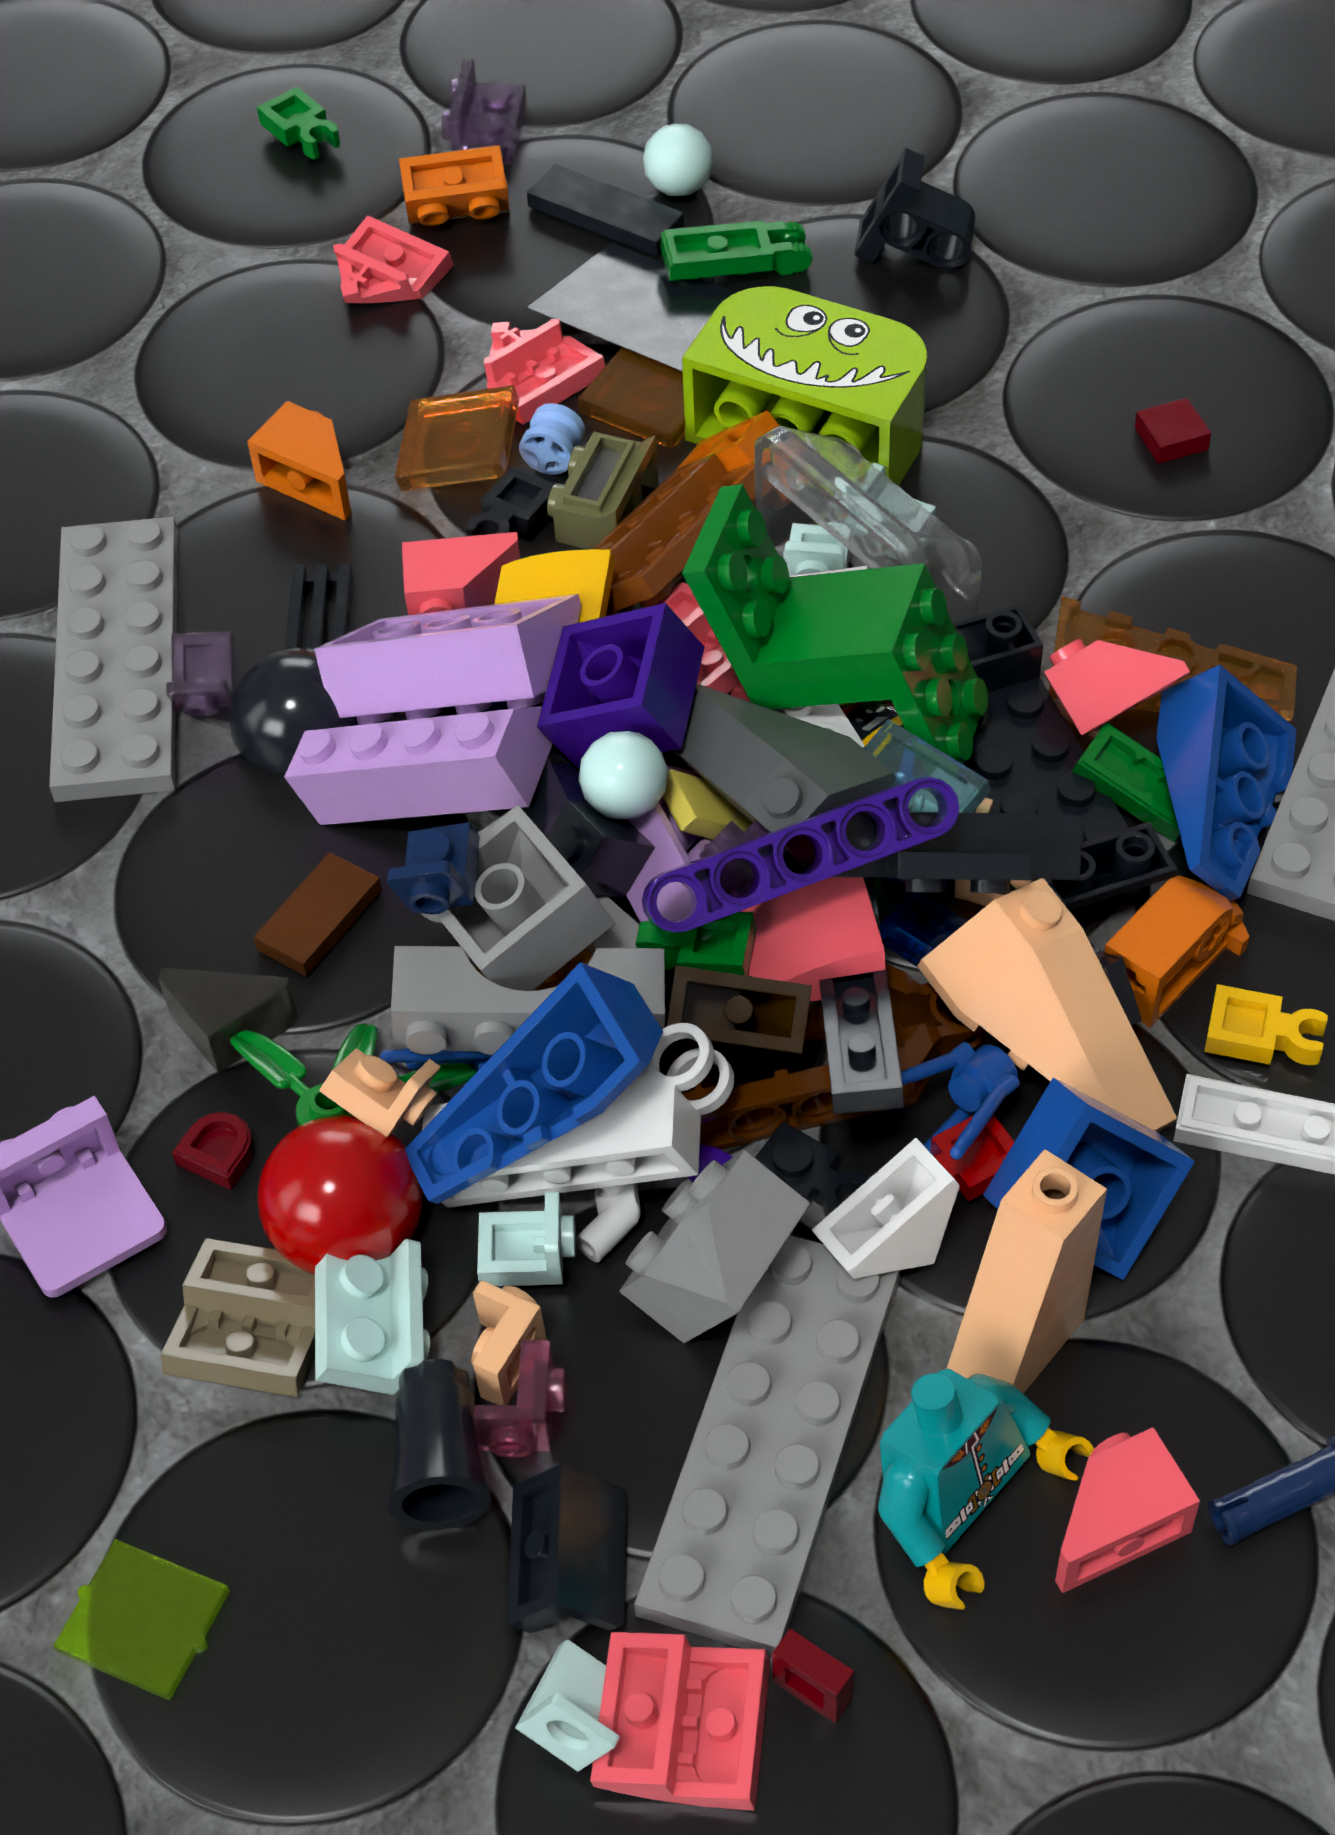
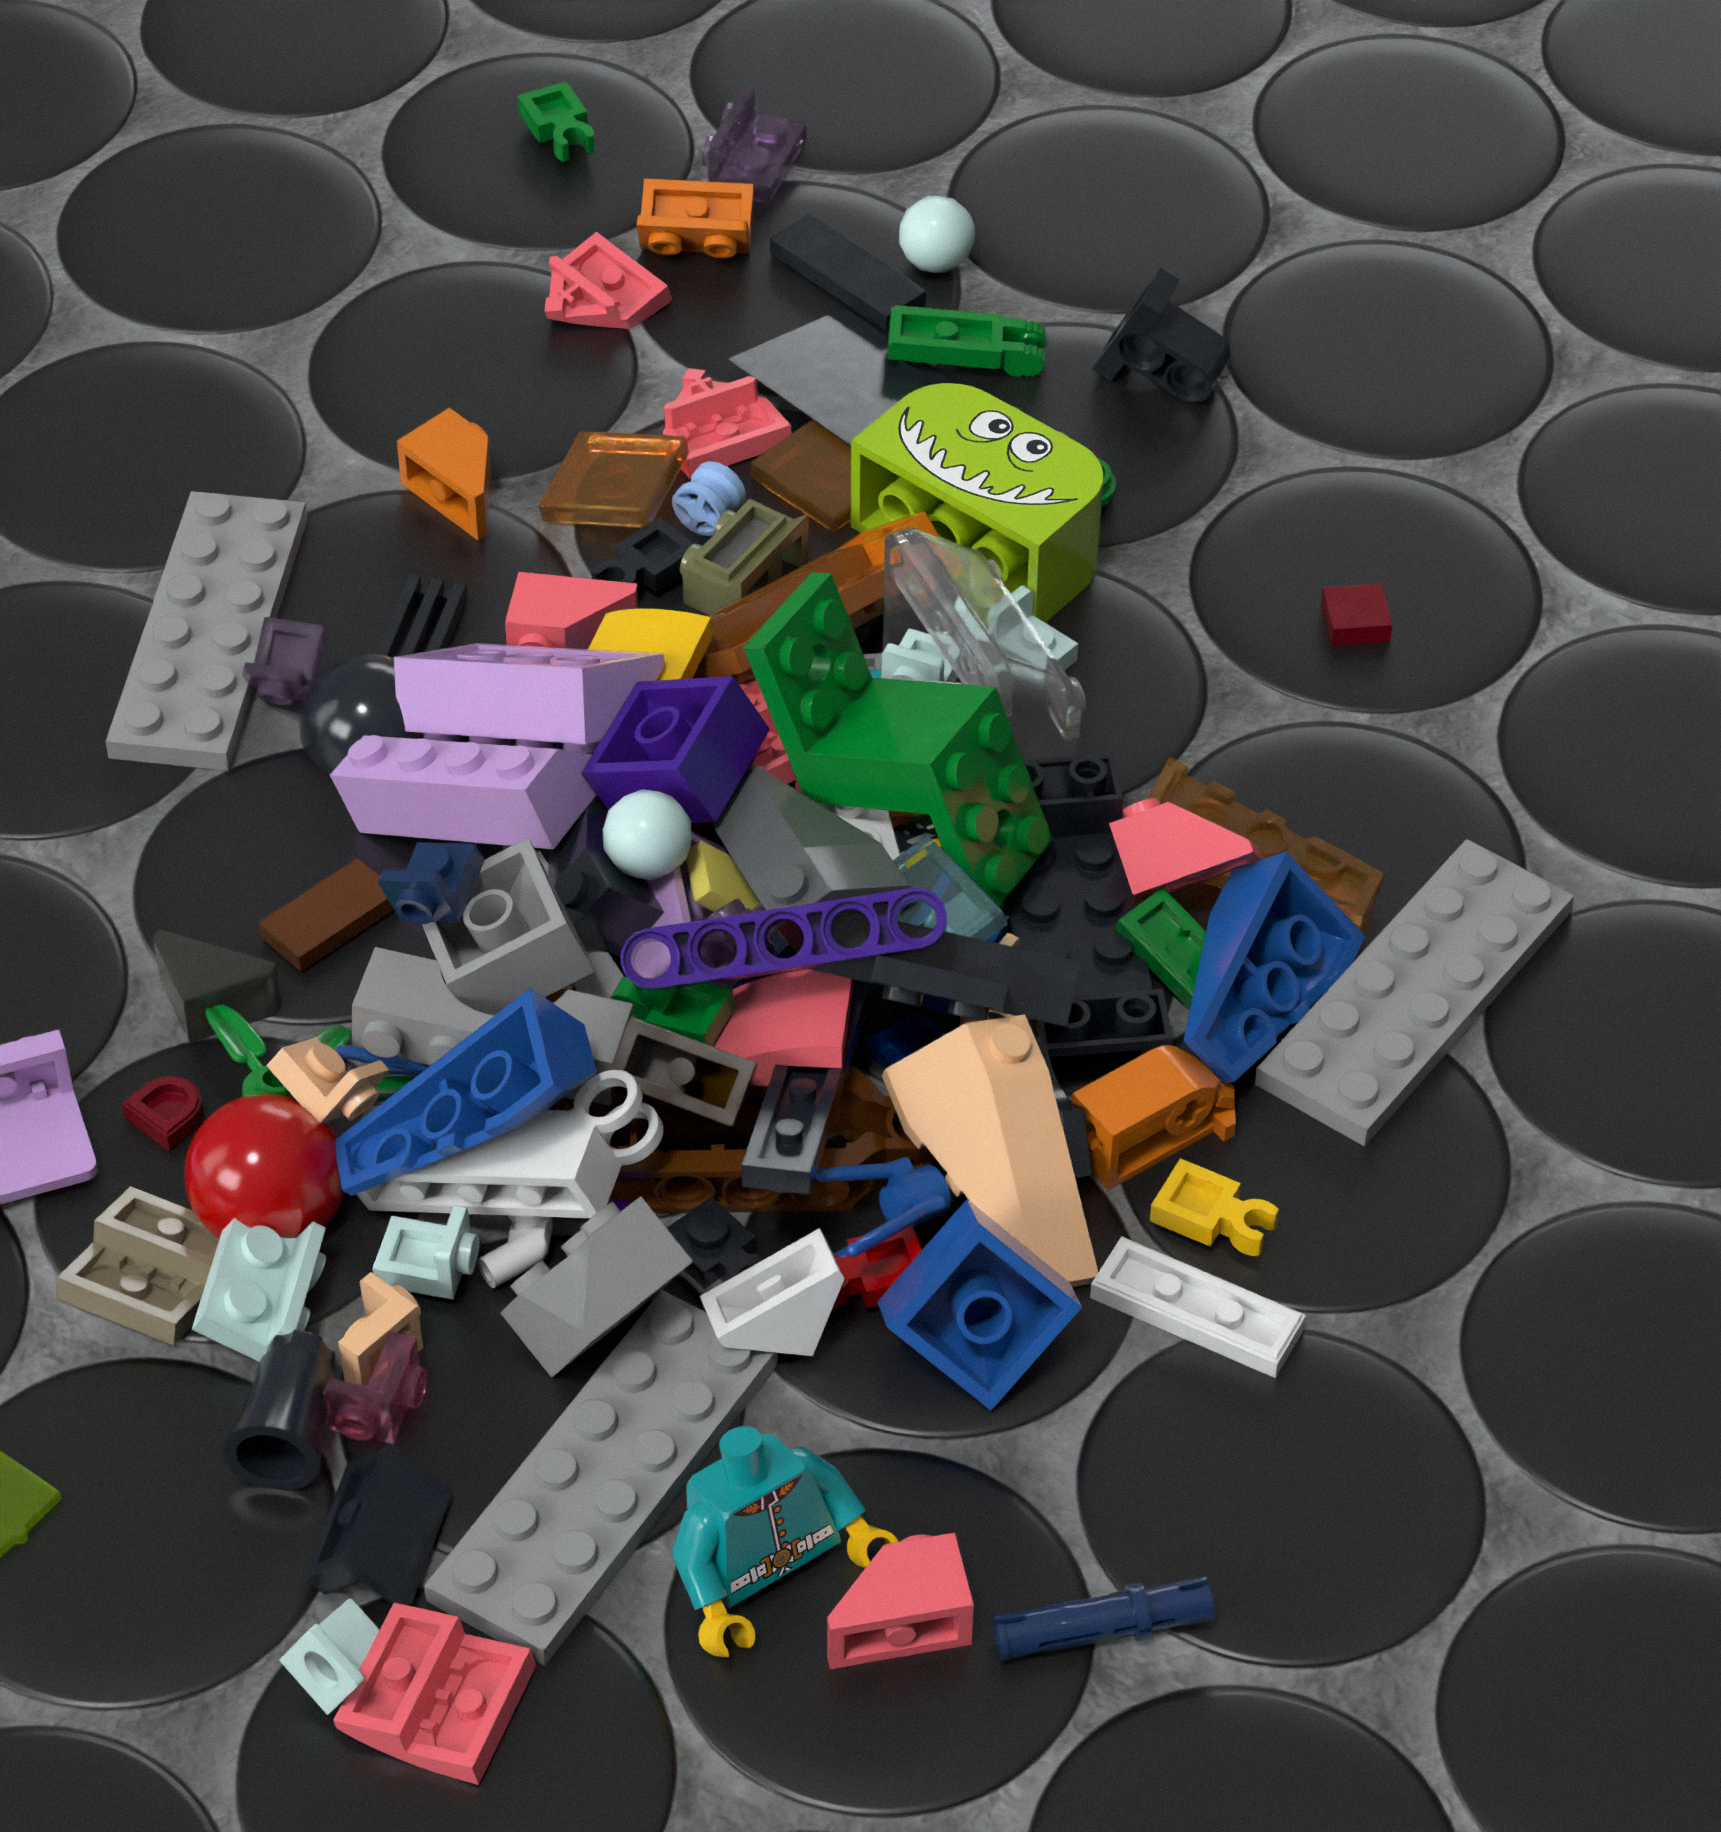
camera: 10 degrees right, 5 degrees down
(812, 1675) = (565, 1679): dark red tile -> none
(1032, 1274) = (878, 1370): light nougat slope -> none

